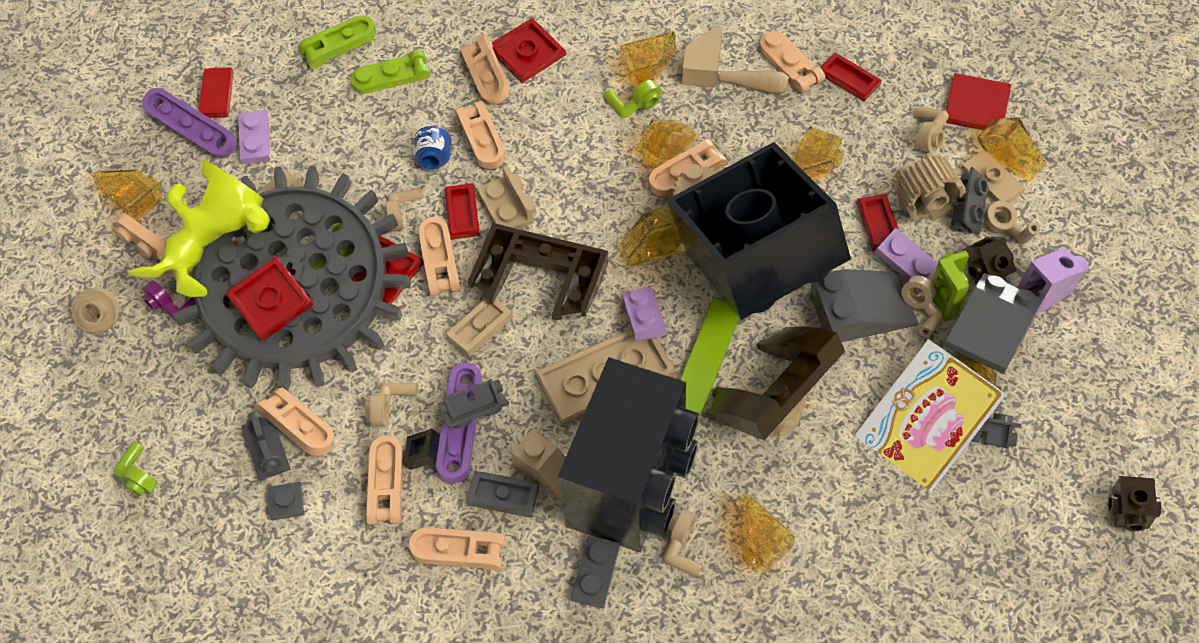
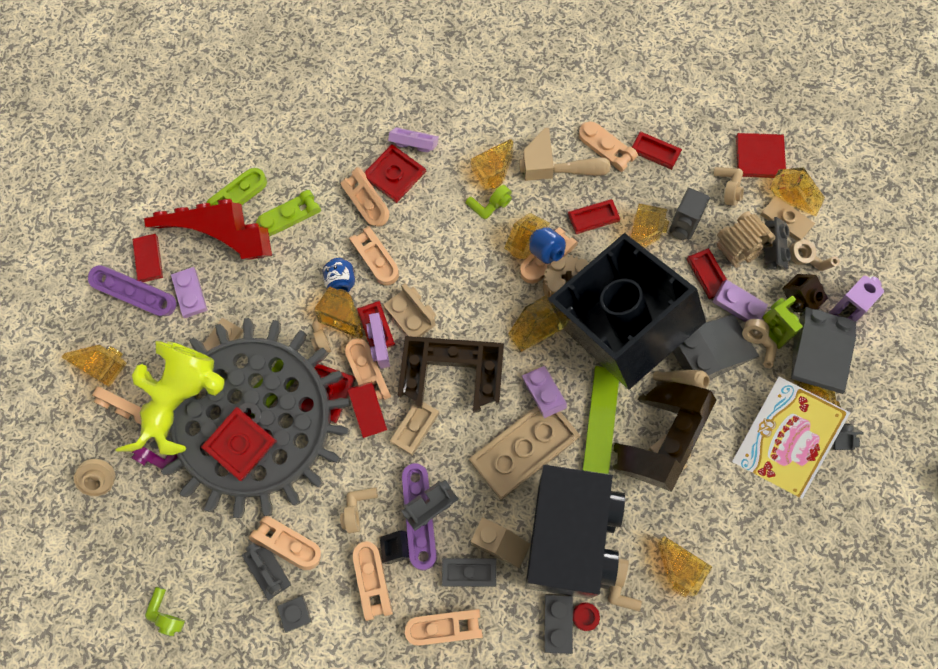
camera: 10 degrees left, 10 degrees up
(309, 62) = (221, 222): none -> red arch
(420, 183) = (338, 311): none -> clear yellow slope
(428, 294) = (367, 409): none -> red tile
(460, 213) = (375, 331): none -> lavender plate
(550, 13) = (406, 138): none -> lavender plate
(630, 570) = (586, 616): none -> red tile
(684, 149) = (547, 245): none -> blue head
(754, 135) = (594, 216): none -> red tile
(819, 320) = (690, 377): none -> tan piece
(867, 148) = (688, 214): none -> dark grey brick

